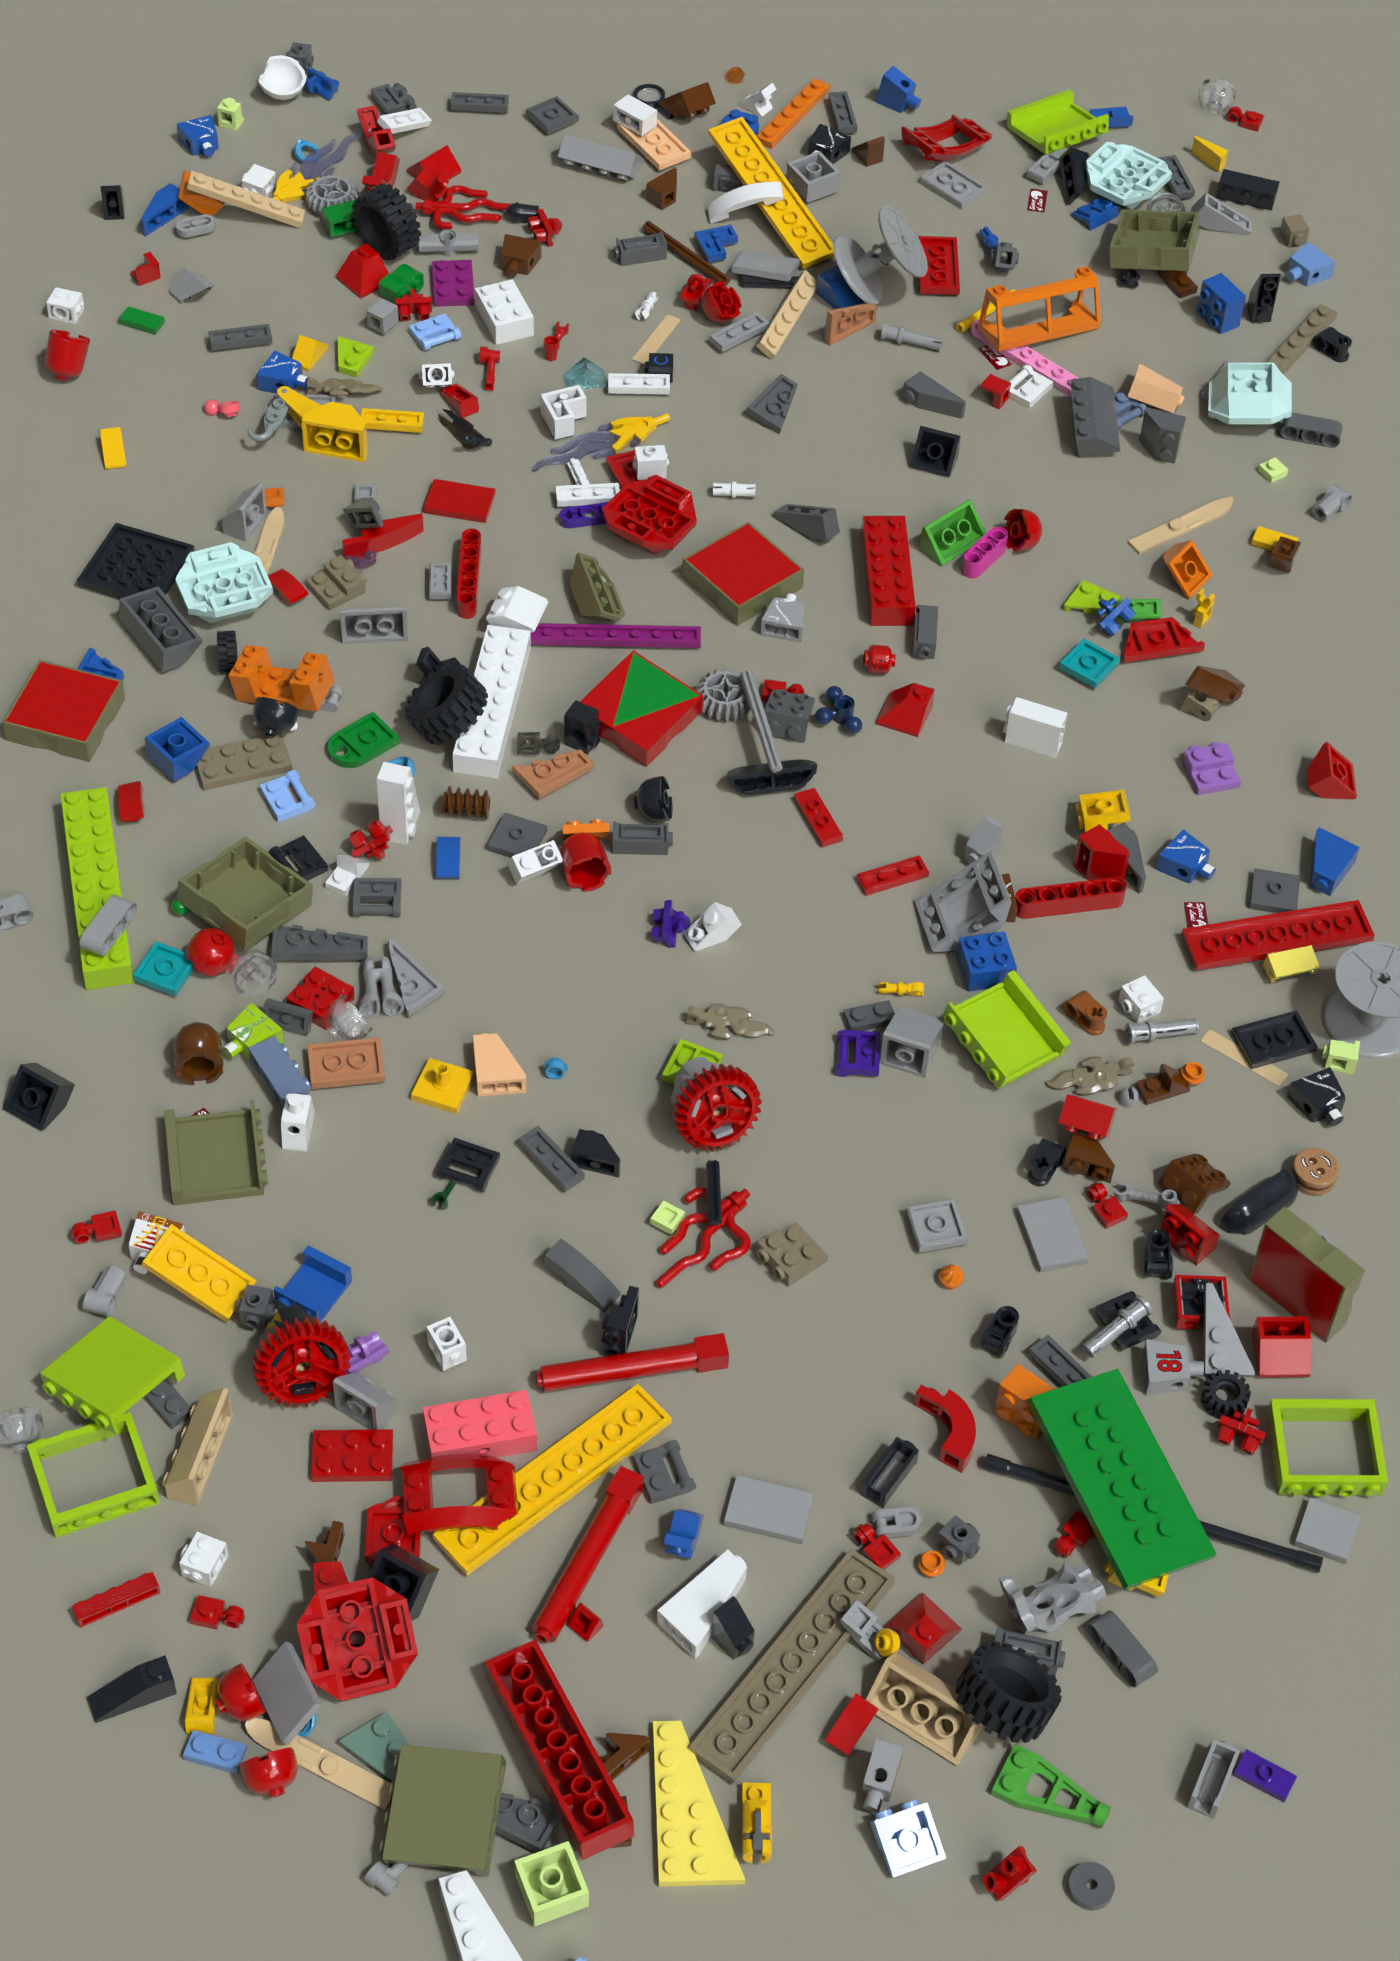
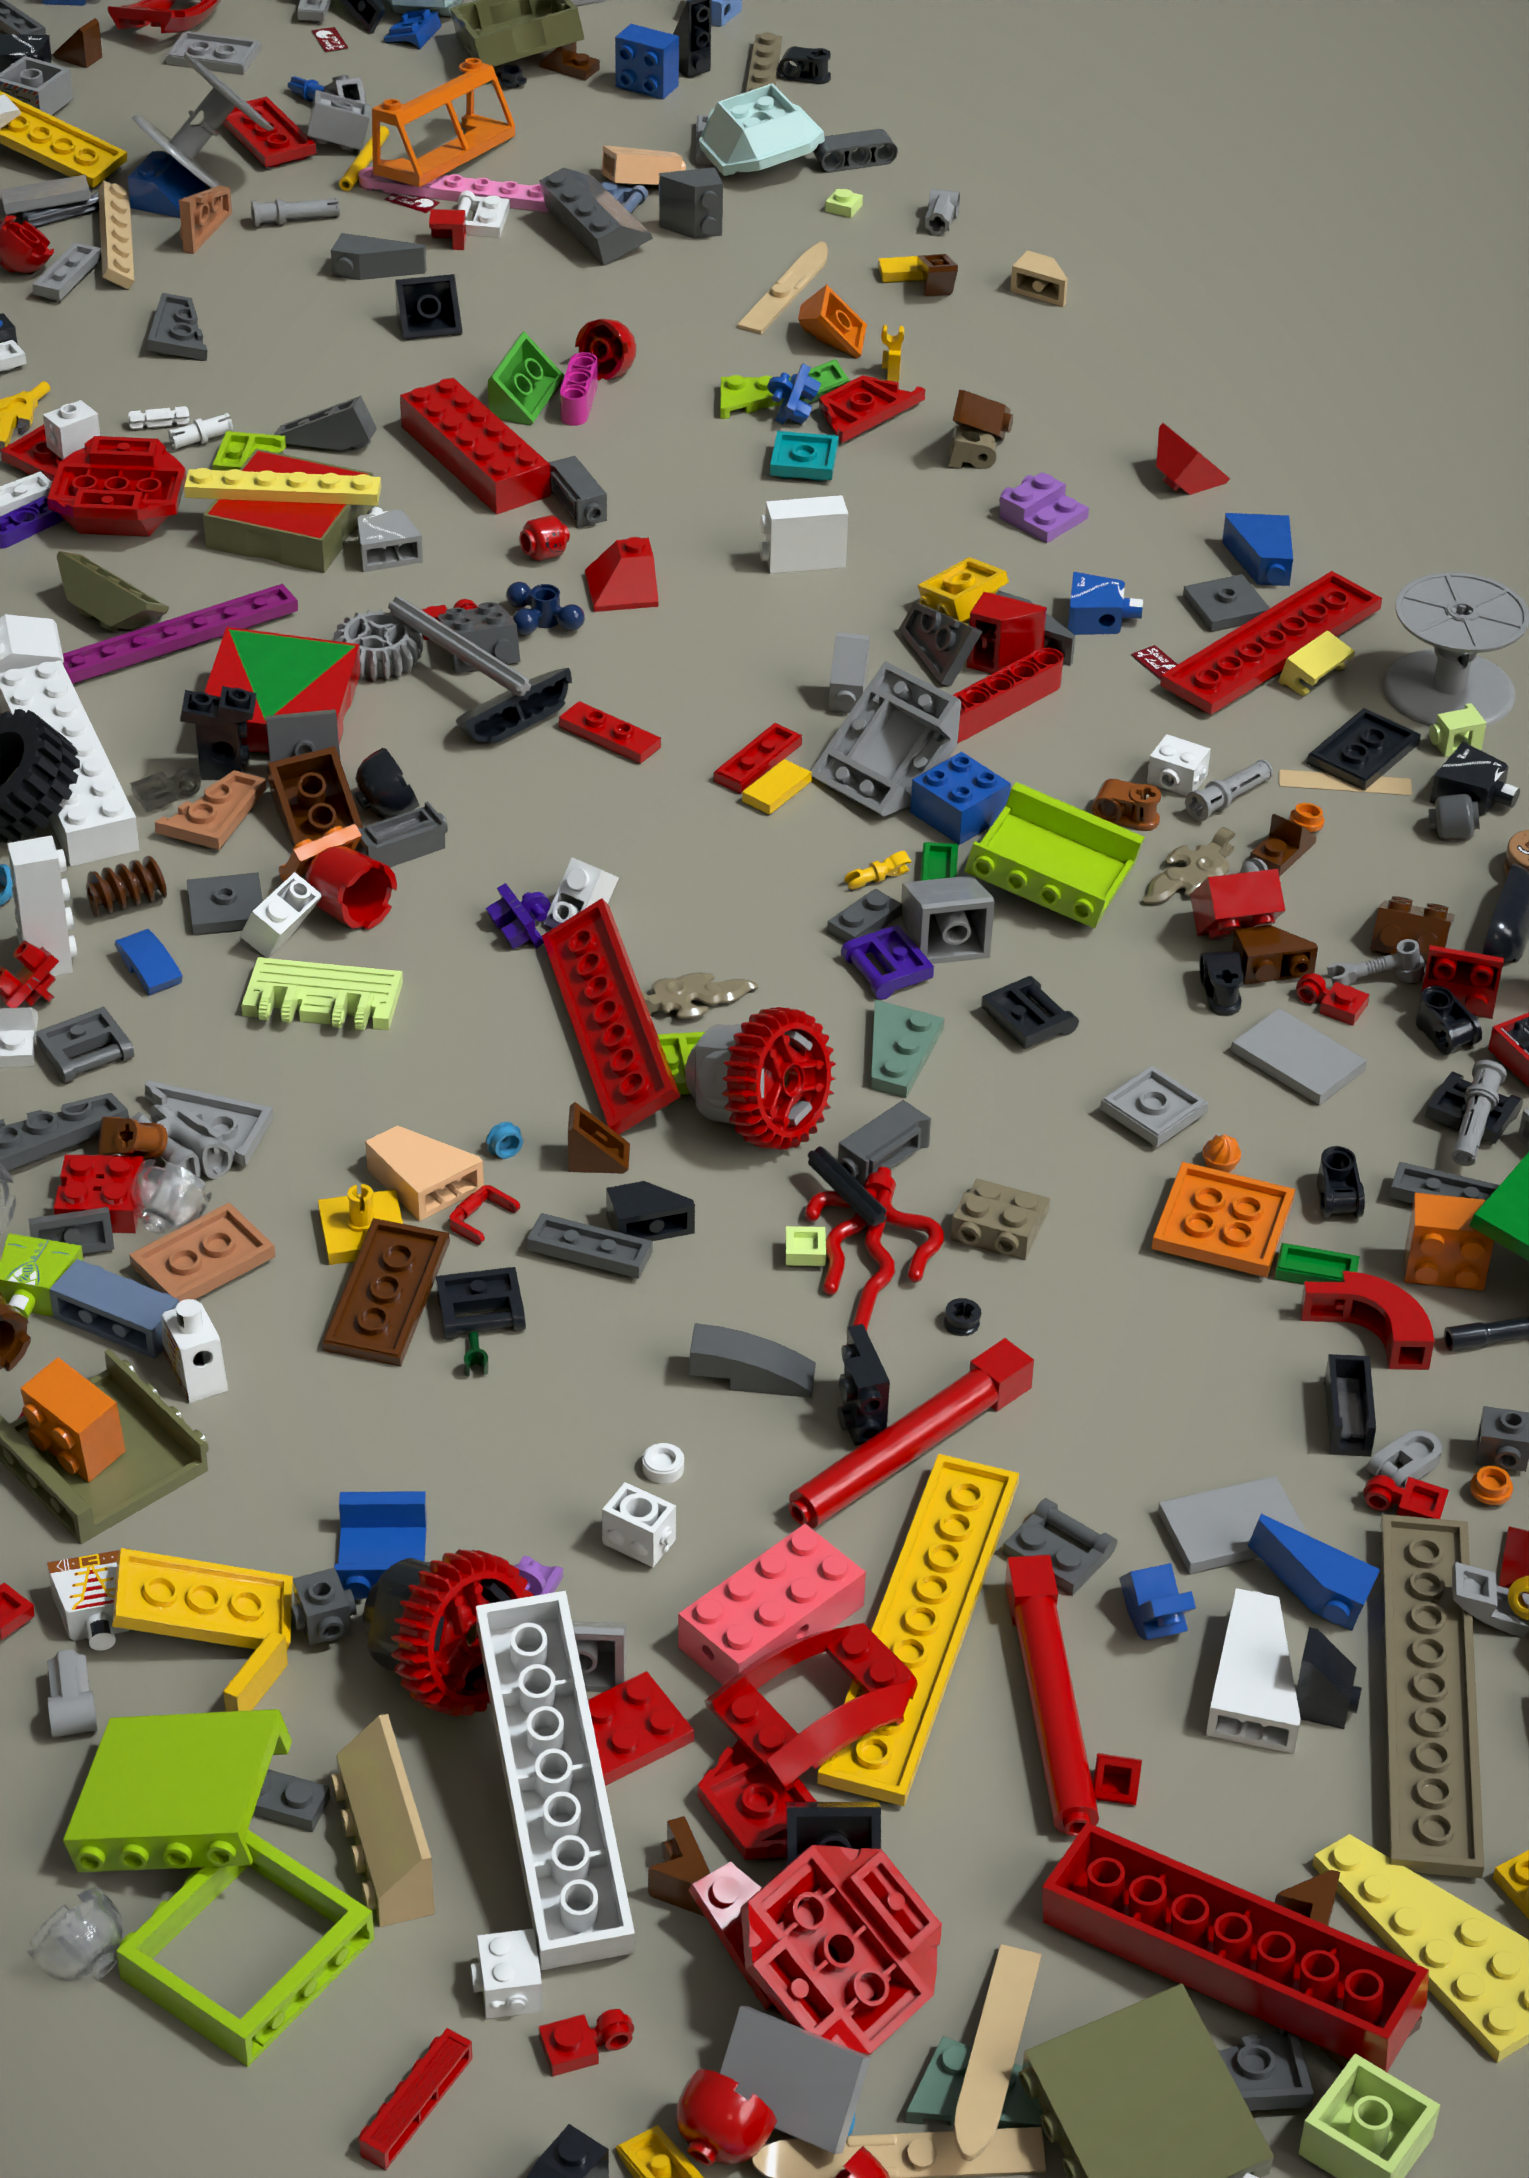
camera: 30 degrees left, 10 degrees down
(198, 1329) = (257, 1674): none -> yellow tile
(201, 1135) = (72, 1420): none -> orange brick
(285, 1468) = (554, 1781): none -> white brick
(354, 971) = (130, 1138): none -> dark orange piece
(403, 1732) = (994, 2050): none -> tan piece
(423, 1133) = (386, 1292): none -> reddish brown tile
(494, 1311) = (663, 1463): none -> white tile
(509, 1100) = (471, 1204): none -> red piece
(527, 924) = (322, 993): none -> yellowish green hinge
(584, 711) = (231, 707): none -> black slope
(598, 1095) = (594, 1145): none -> reddish brown slope
(609, 791) = (312, 794): none -> reddish brown slope
(625, 752) = (301, 733): none -> dark grey plate
(667, 1016) = (610, 1017): none -> red plate
(718, 468) = (158, 418): none -> white axle
(728, 1303) = (962, 1326): none -> black bush
(741, 558) = (282, 487): none -> light yellow plate
(749, 512) = (239, 446): none -> lime wing
(759, 1173) = (885, 1141): none -> dark grey window
(787, 1571) = (1317, 1573): none -> blue slope
(823, 1114) = (901, 1046): none -> sand green wing
(887, 901) = (776, 786): none -> yellow tile
(906, 1127) = (1021, 1018): none -> black plate
(916, 1319) = (1223, 1219): none -> orange plate
(938, 1001) = (939, 861): none -> green tile
(948, 1375) = (1308, 1264): none -> green tile
(984, 272) = (338, 121): none -> light grey slope
(1061, 842) = (939, 640): none -> dark grey wing
(1285, 1117) = (1454, 817): none -> dark grey head
(1351, 585) = (1039, 278): none -> tan slope

